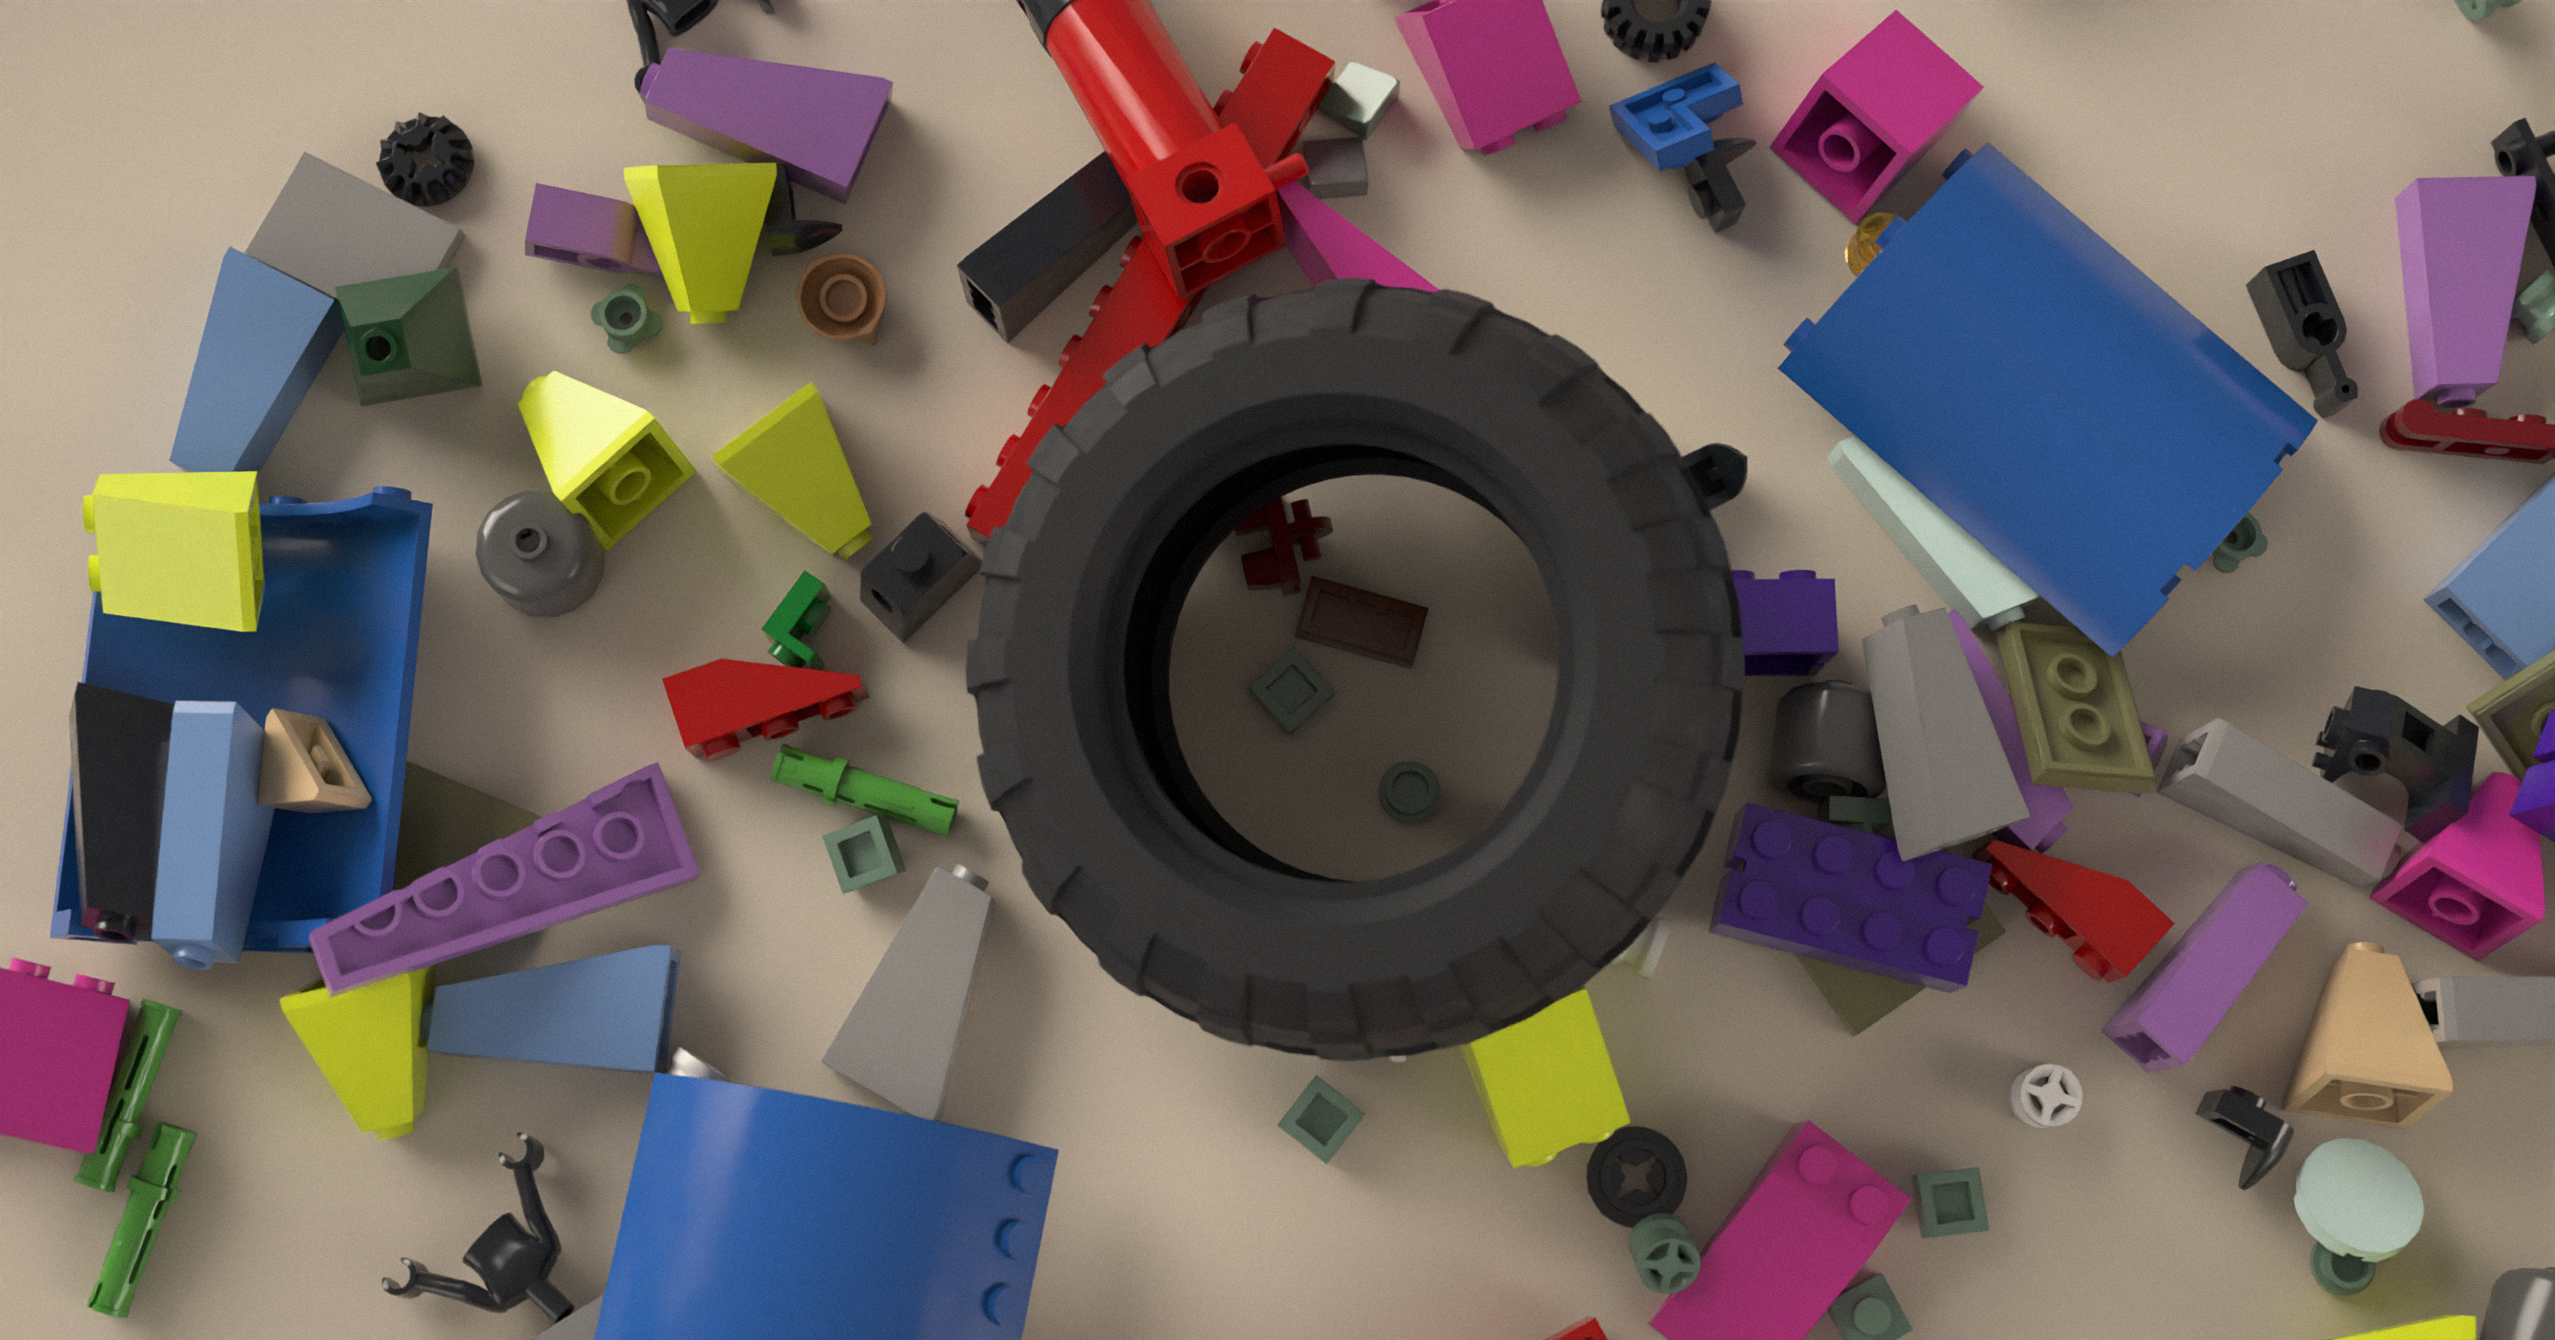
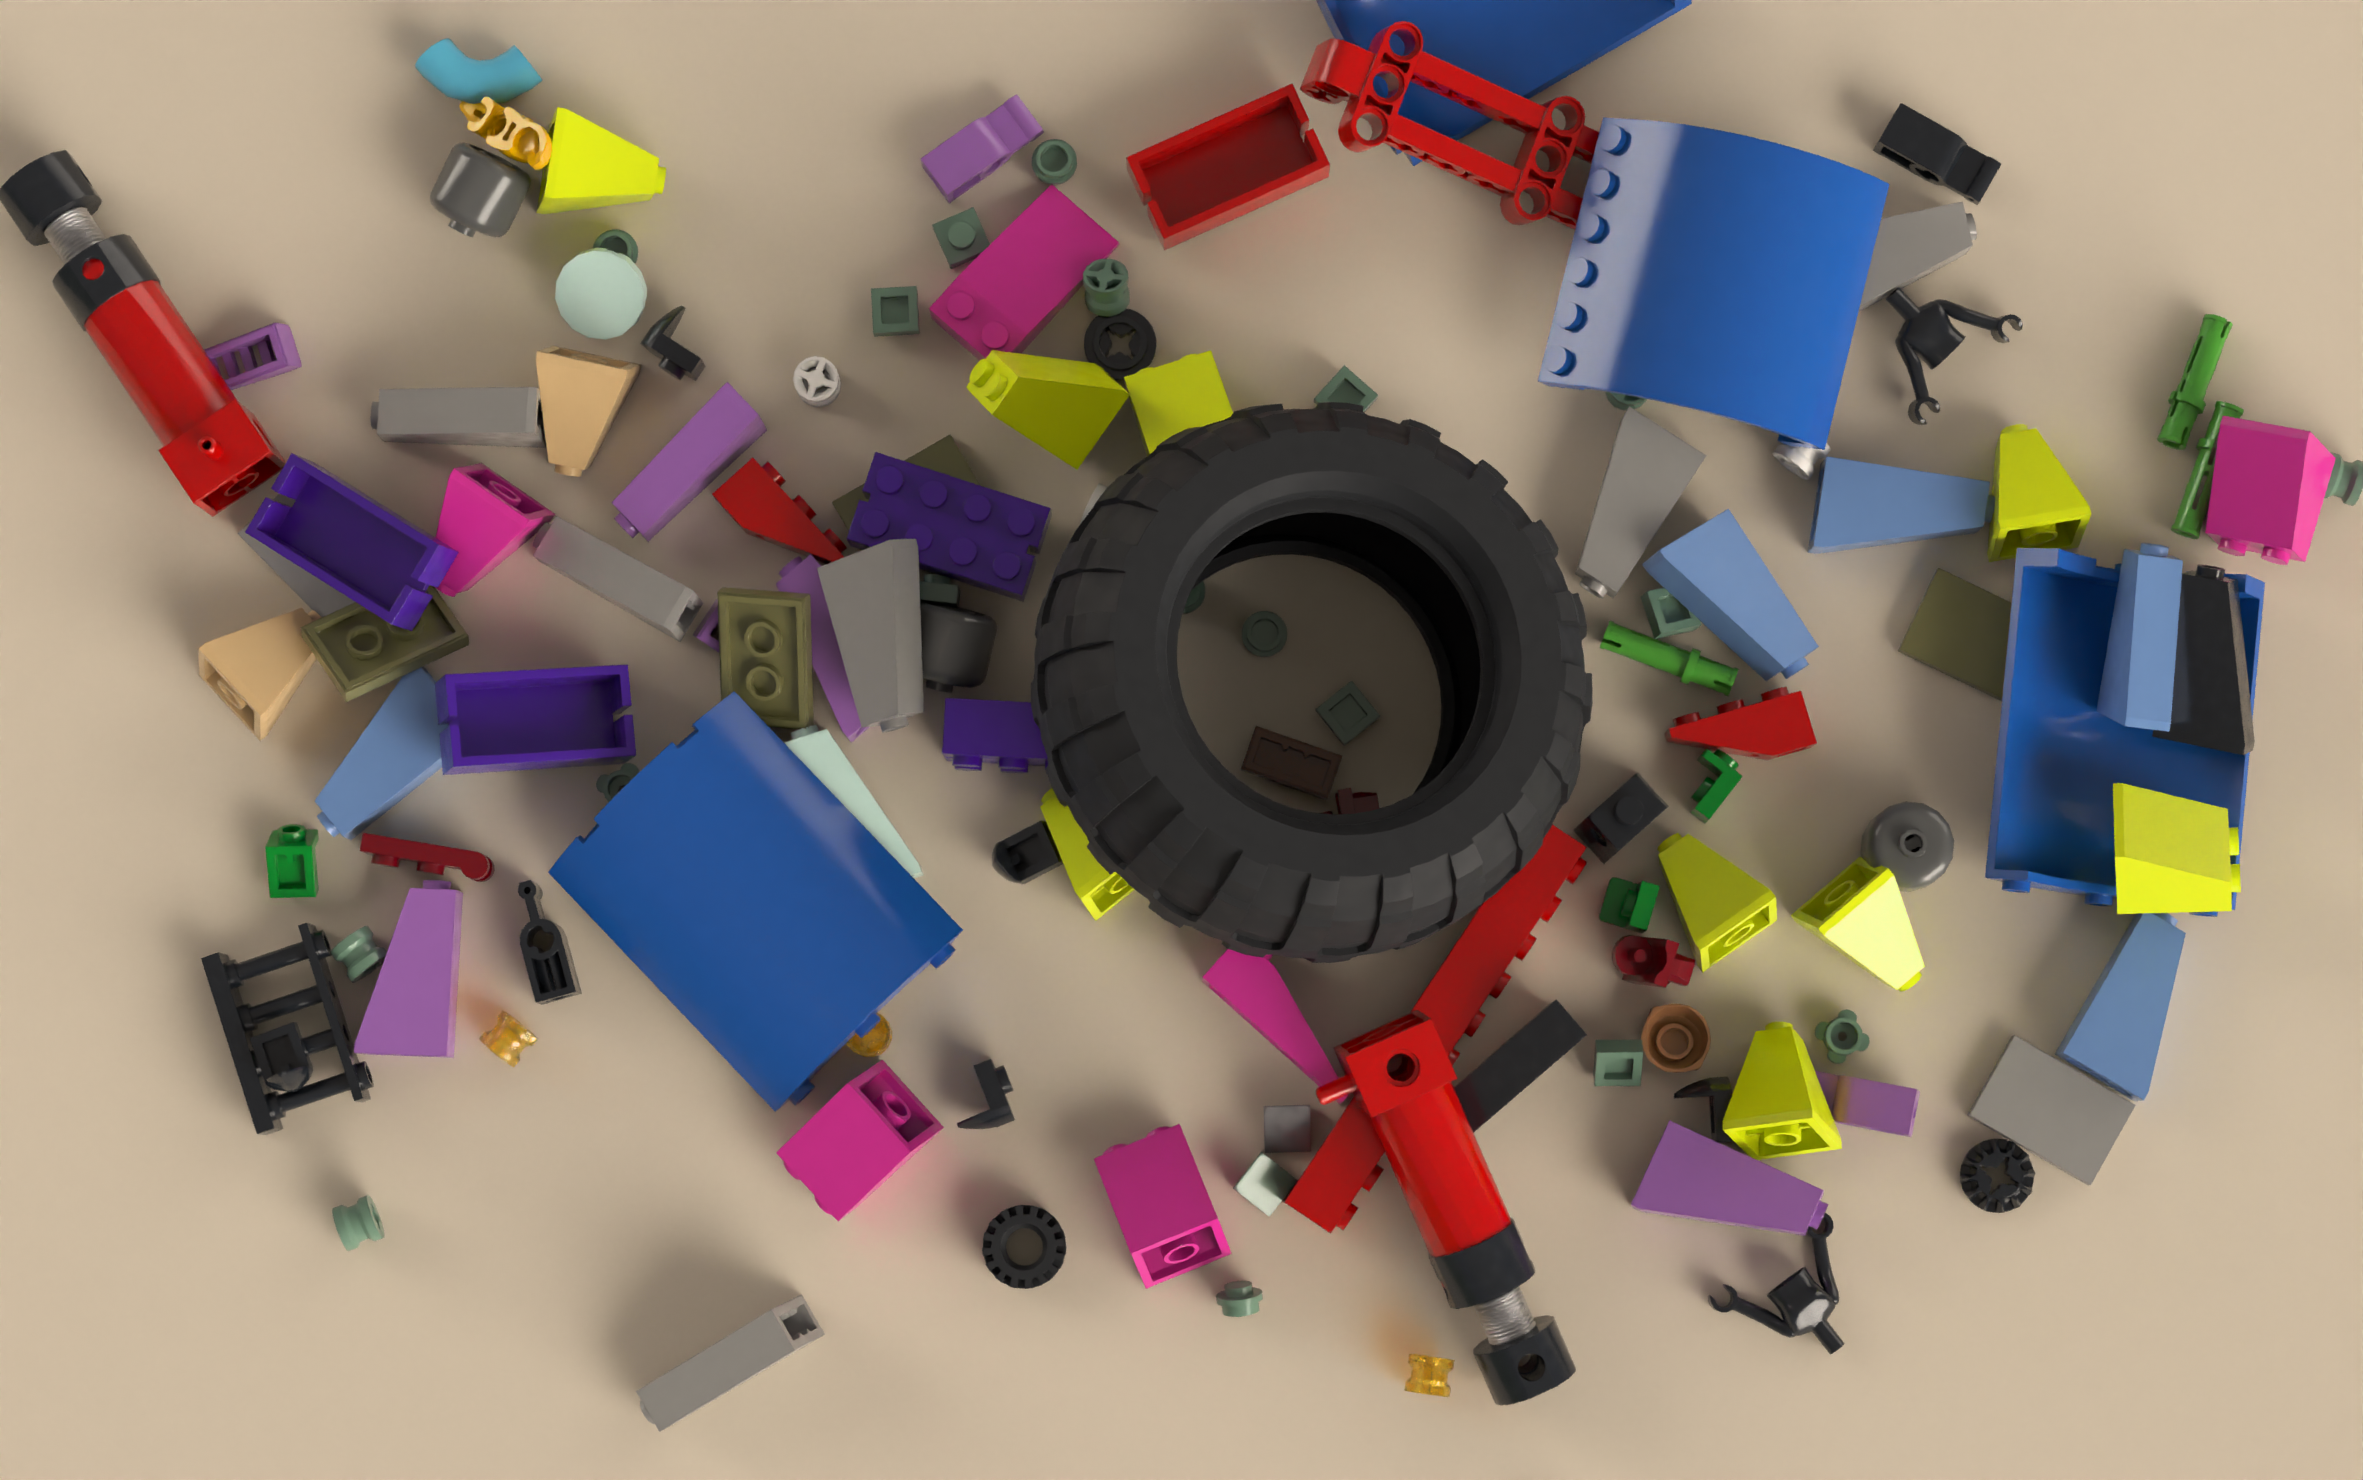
camera: 170 degrees left, 5 degrees up
(306, 767) = (2077, 690): tan slope -> none
(408, 336) = (2008, 1023): dark green slope -> none
(560, 868) = (1901, 602): medium lavender wing -> none
(778, 877) = (1734, 595): none -> medium blue slope
(874, 382) = (1651, 961): none -> dark red hips
(906, 463) = (1629, 904): none -> green bracket
(915, 266) = (1618, 1062): none -> sand green plate
(1671, 117) = (1026, 1153): blue plate -> none
(1737, 1073) = (1049, 400): none -> neon yellow slope
(2335, 214) = (508, 1038): none -> clear yellow wheel
(2375, 599) = (534, 719): none -> dark purple piece
(2391, 736) = (554, 611): black tile -> none

